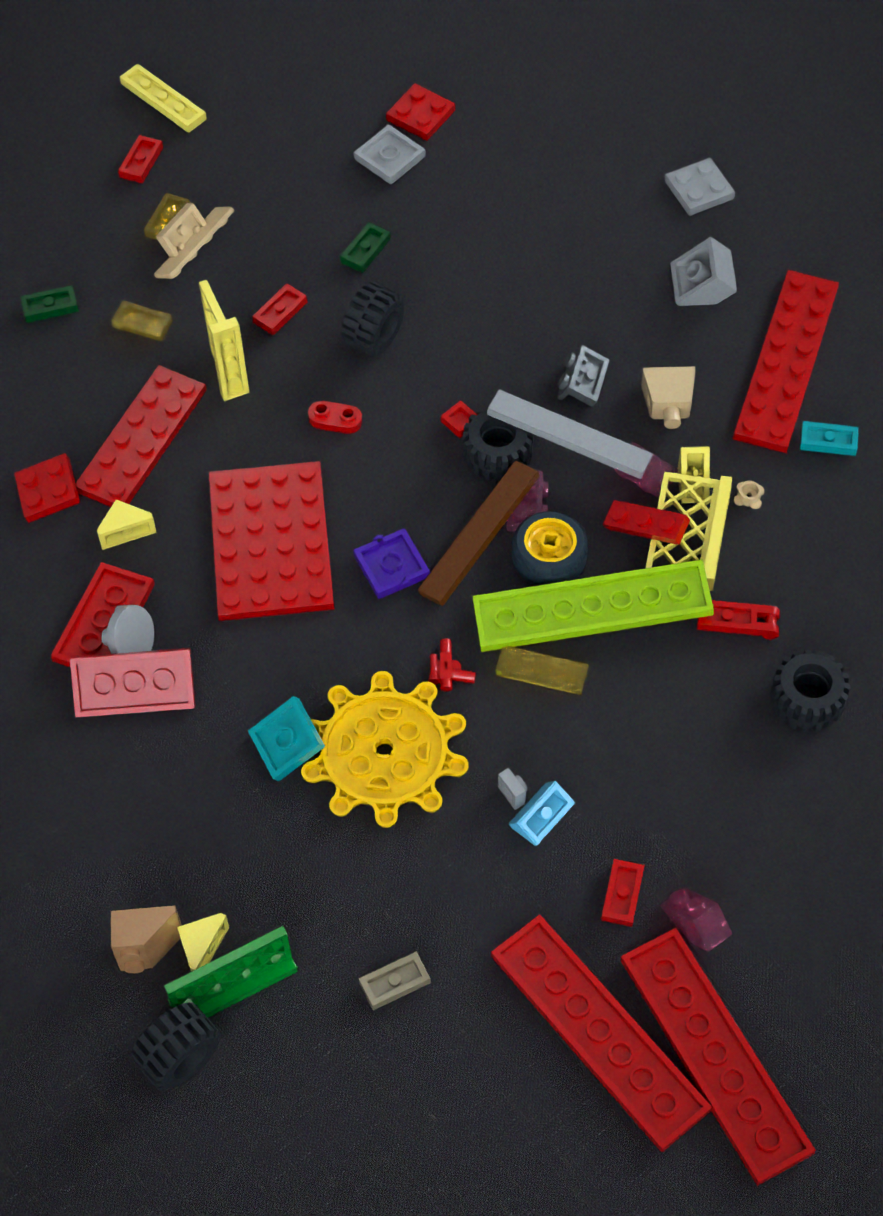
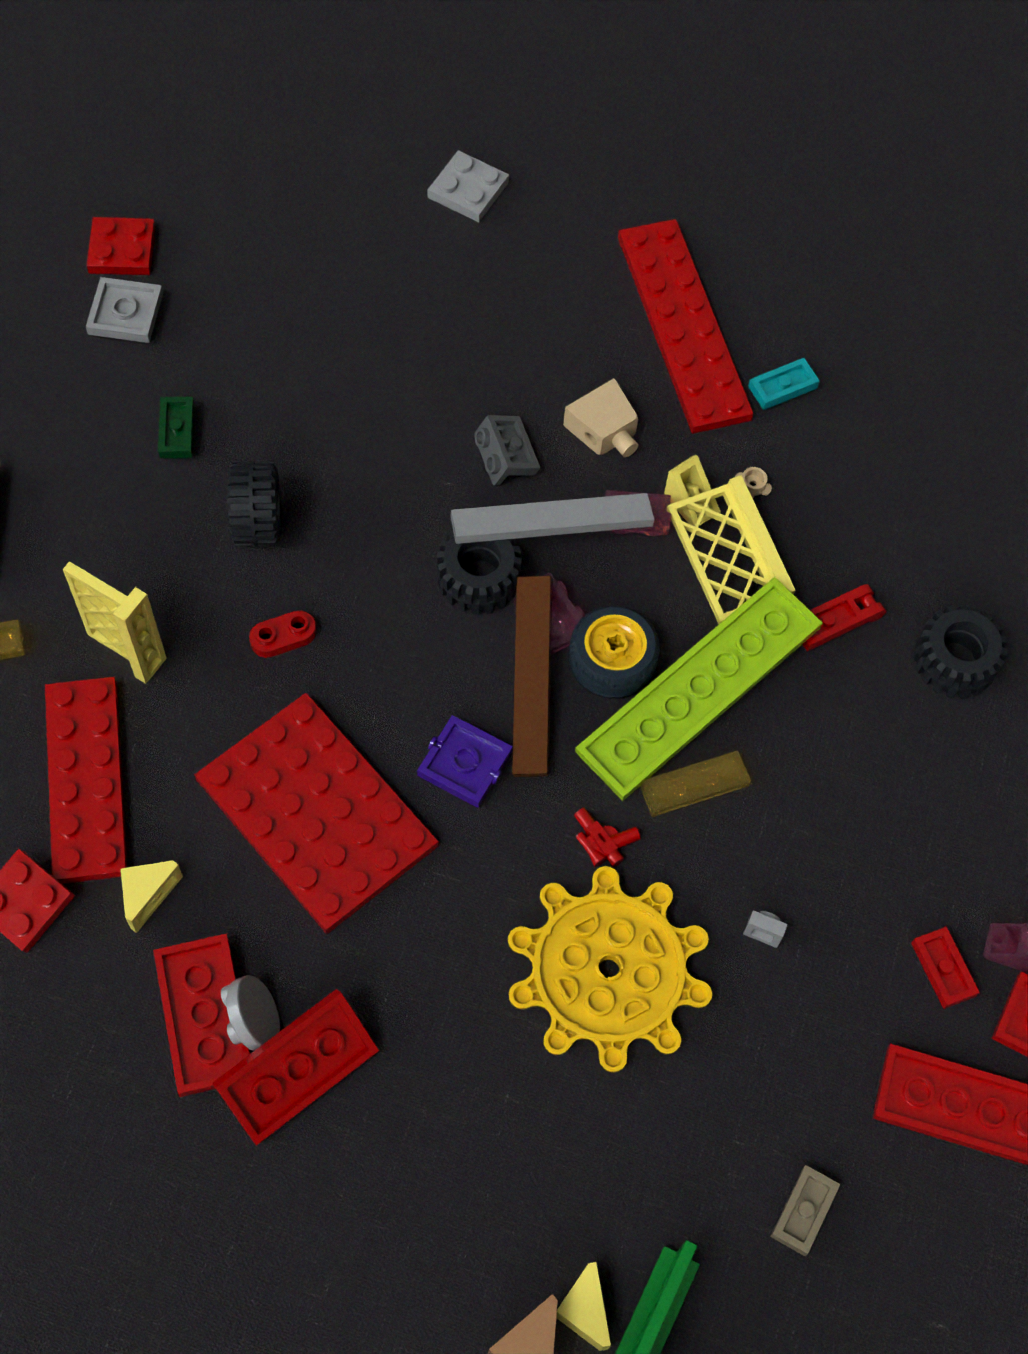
camera: 40 degrees left, 5 degrees up
(279, 309) = (134, 546): red plate -> none
(286, 738) = (506, 1023): teal plate -> none
(456, 418) = (417, 563): red plate -> none
(542, 812) = (806, 934): medium azure slope -> none
(646, 522) = (687, 568): red plate -> none
(703, 274) = (544, 277): light grey slope -> none

